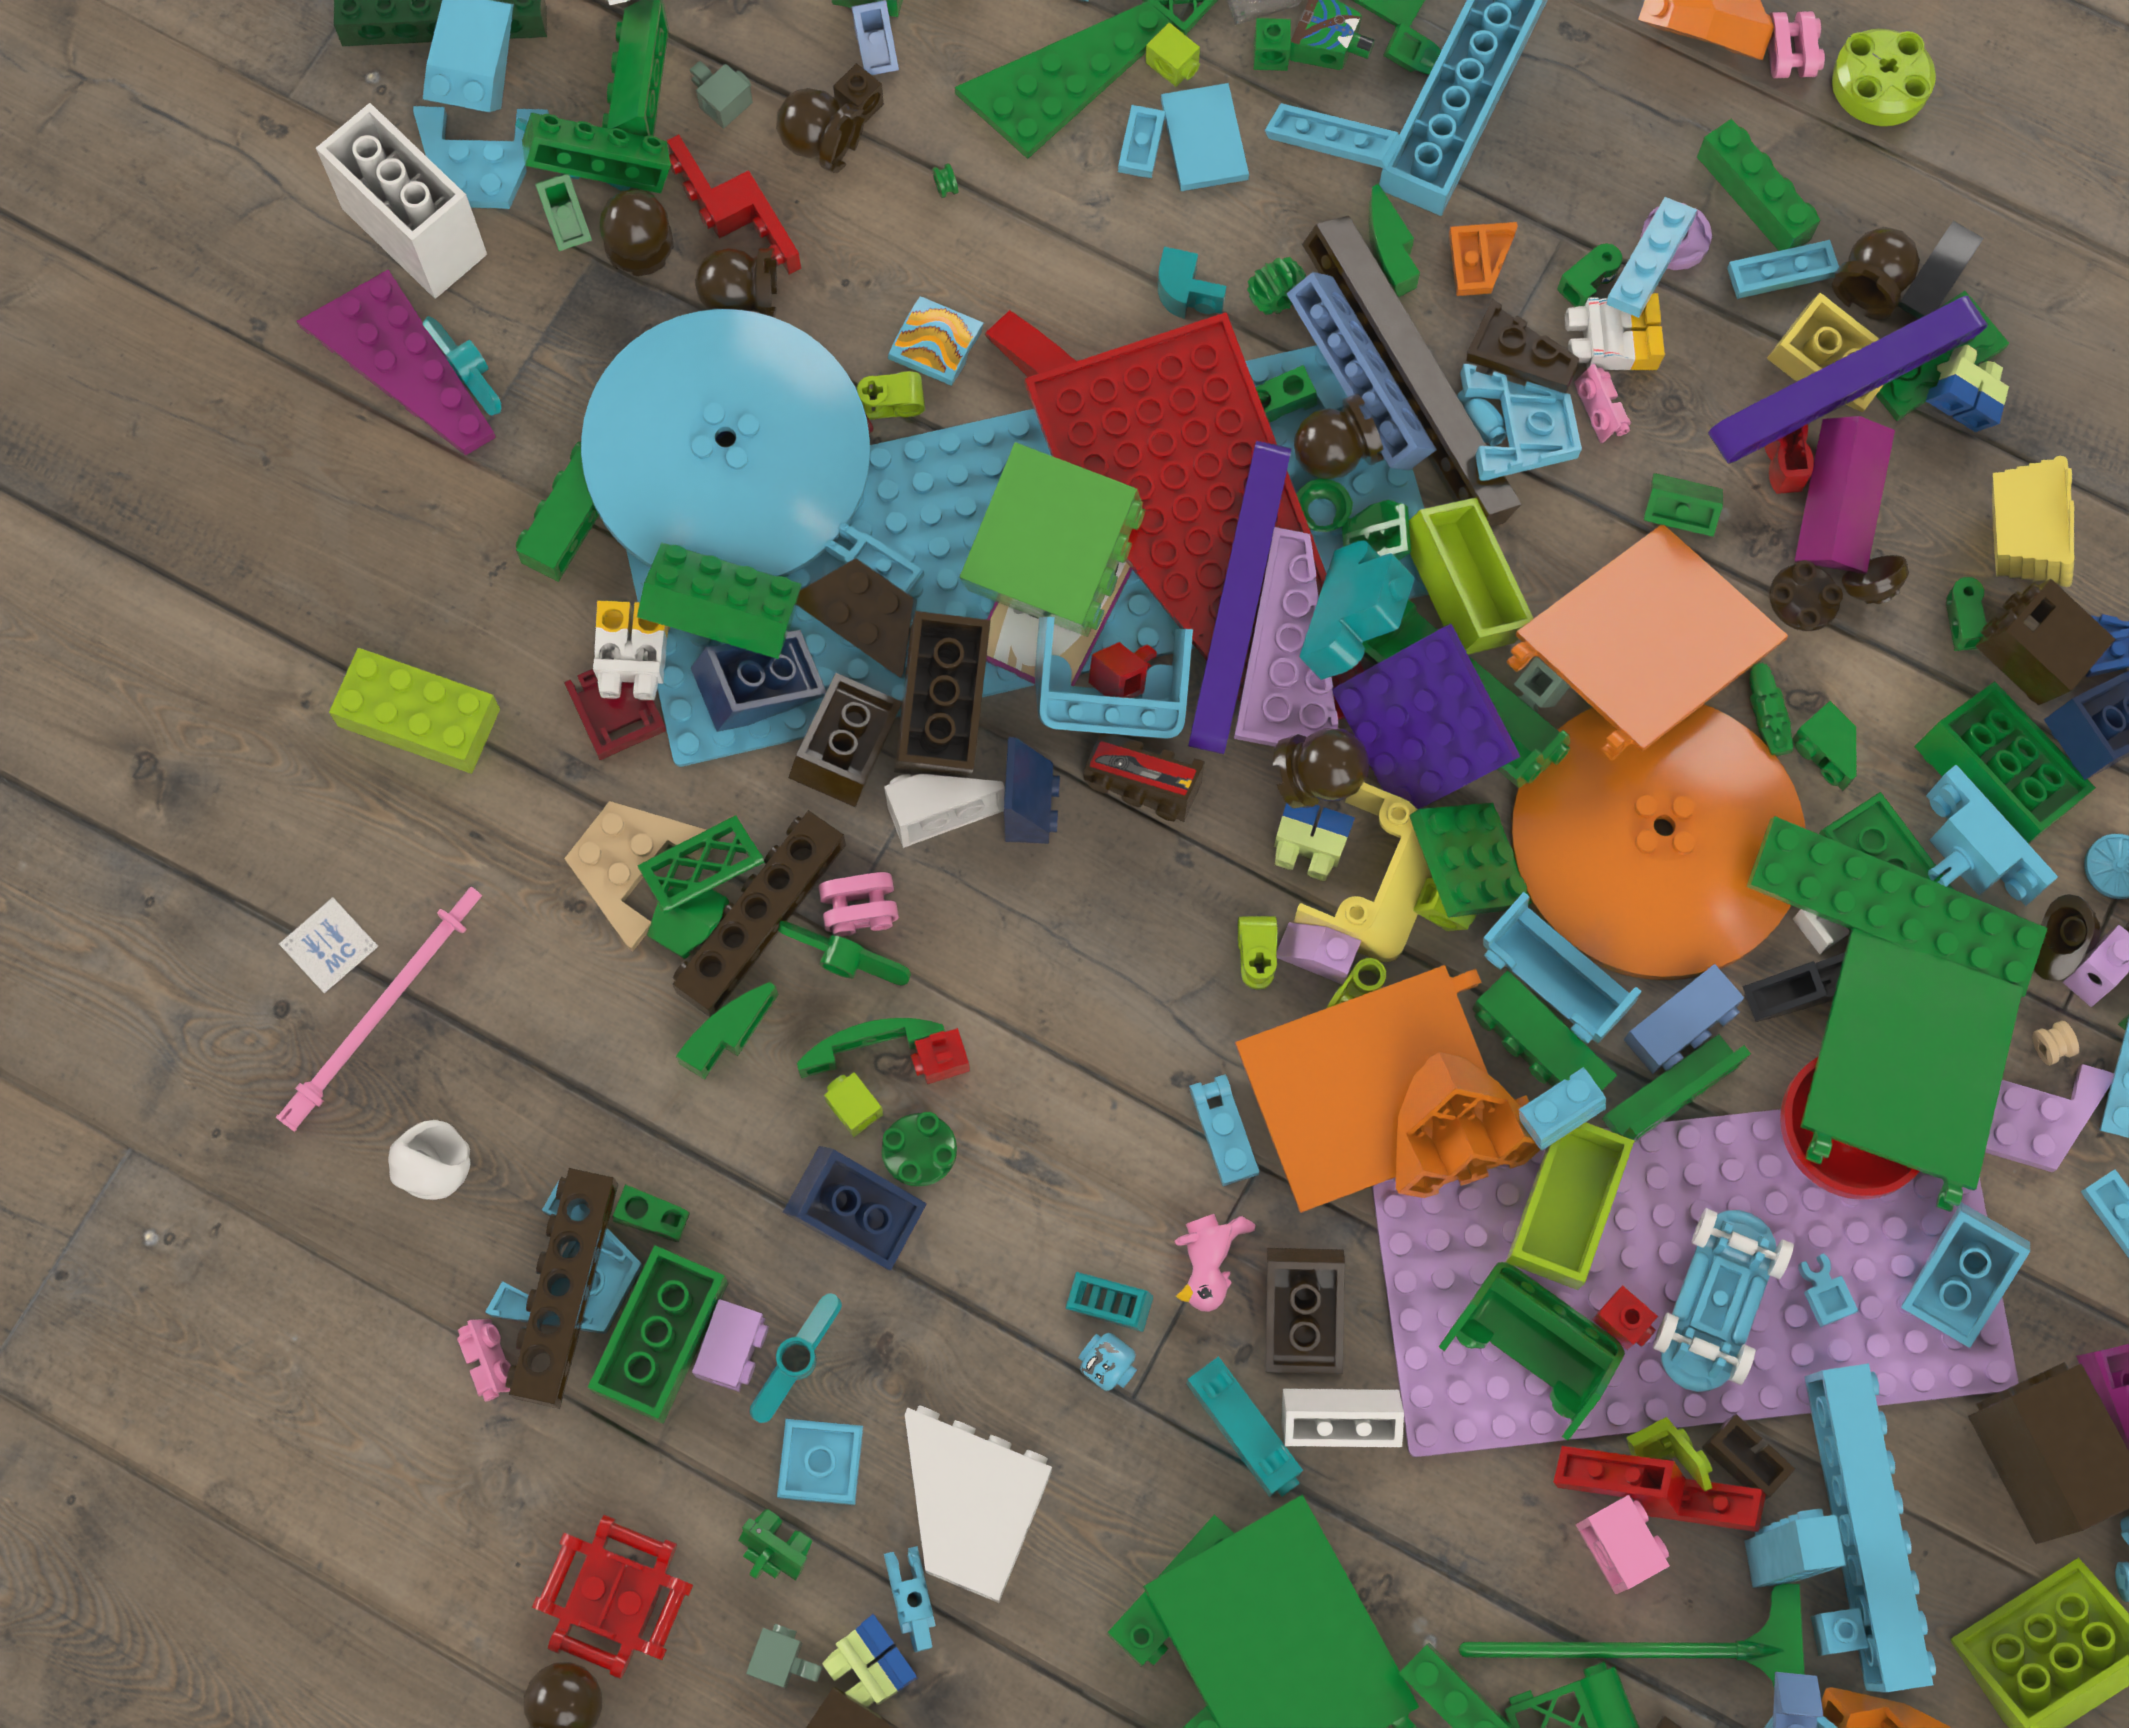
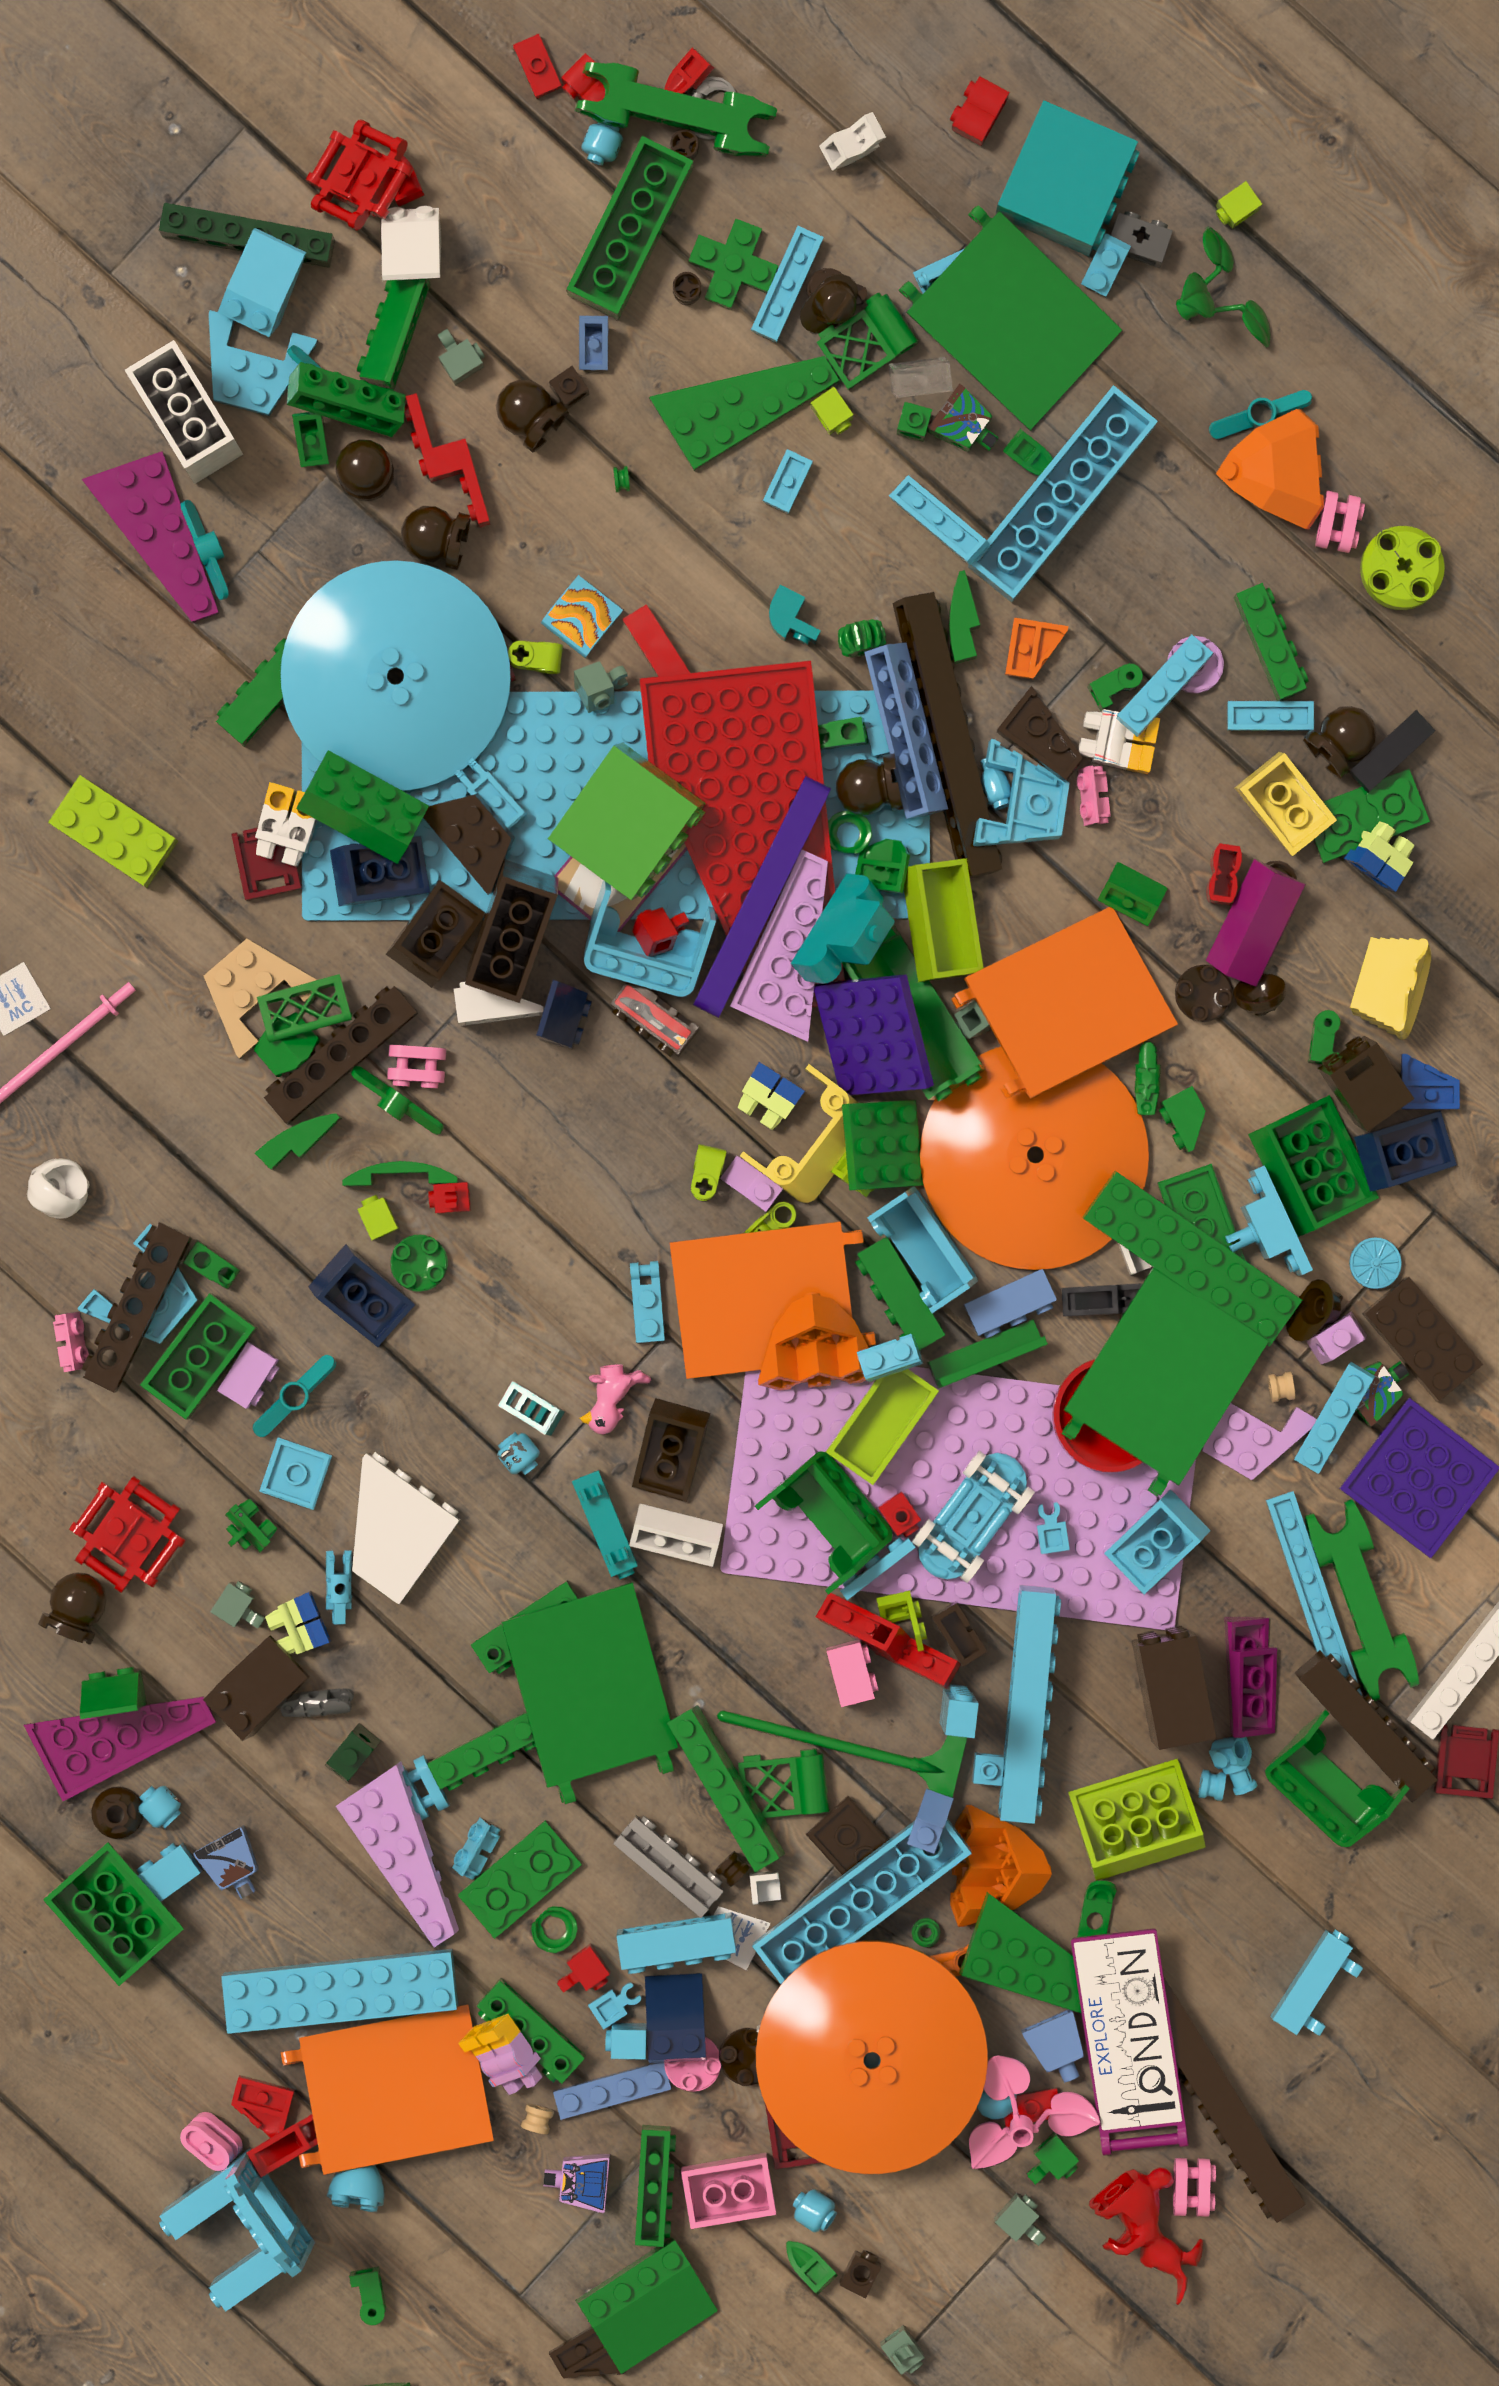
camera: 15 degrees right, 15 degrees up
(973, 409) = (597, 687): none -> sand green brick
(1204, 137) = (840, 487): medium azure tile -> none
(1320, 767) = (783, 1053): dark brown tile -> none
(1616, 1394) = (877, 1566): none -> medium azure plate
(1847, 379) = (1282, 833): dark purple beam -> none

